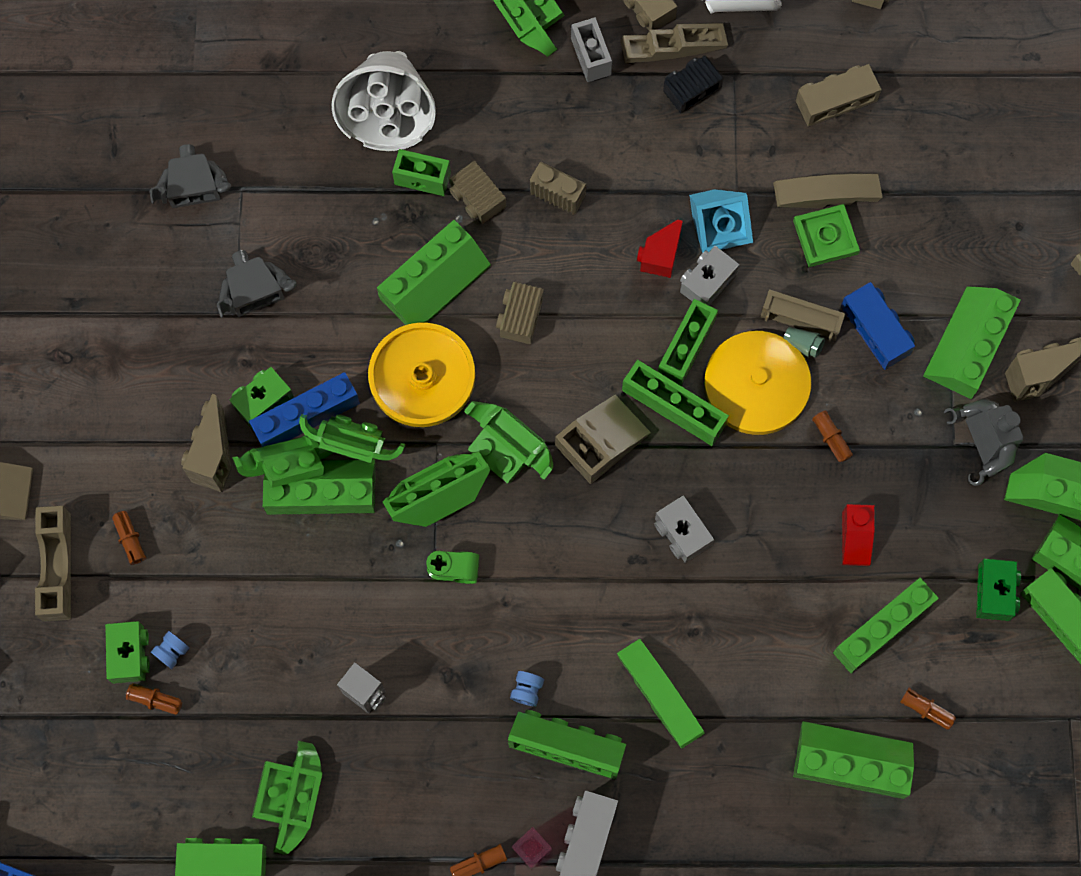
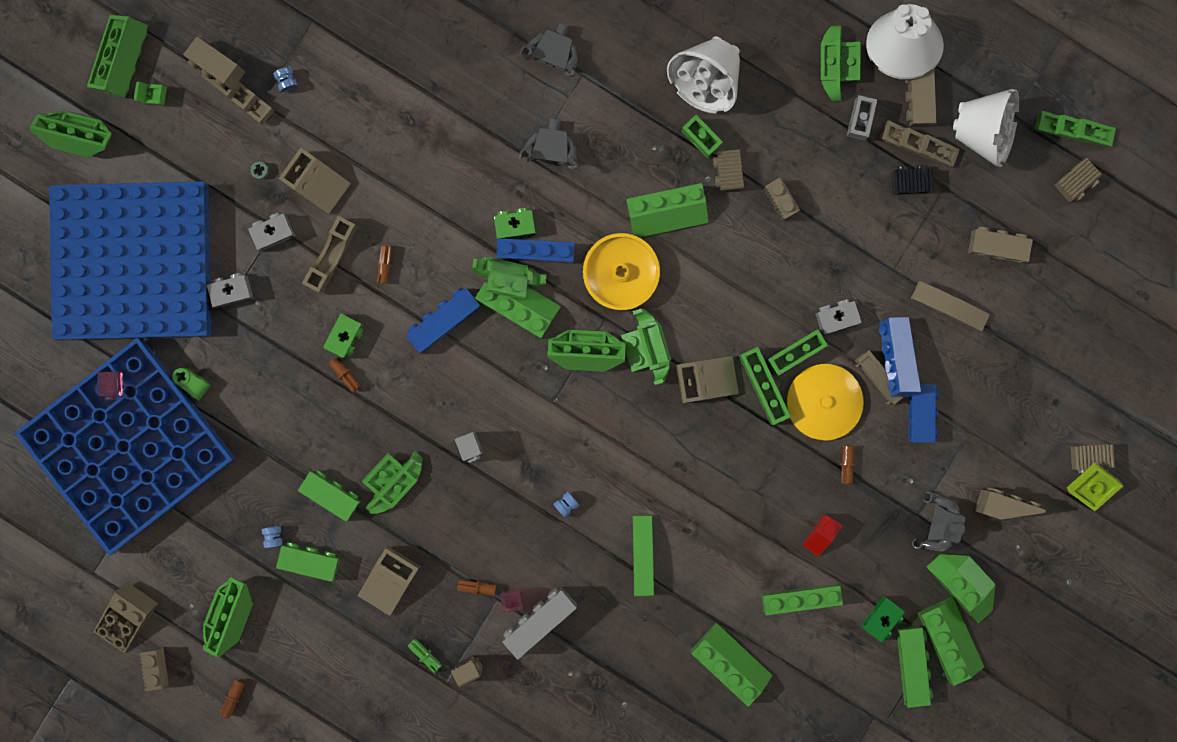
camera: 25 degrees right, 15 degrees up
(170, 650) = (370, 350): medium blue wheel -> none
(209, 455) = (463, 243): dark tan slope -> none
(239, 560) = (442, 321): none -> blue brick
(350, 438) = (552, 288): bright green plate -> none
(457, 566) = (571, 406): bright green piece -> none
(521, 312) = (706, 268): dark tan brick -> none
(567, 745) = (569, 553): bright green slope -> none
(660, 250) = (819, 281): red slope -> none
(682, 514) = (725, 476): light grey brick -> none
(721, 219) = (870, 283): medium azure slope -> none
(805, 341) = (870, 395): sand green cone -> none
(809, 275) = (899, 357): none -> brick
(826, 235) = (931, 334): bright green plate -> none
(928, 709) = (794, 662): dark orange axle -> none
(971, 339) = (974, 457): bright green slope -> none

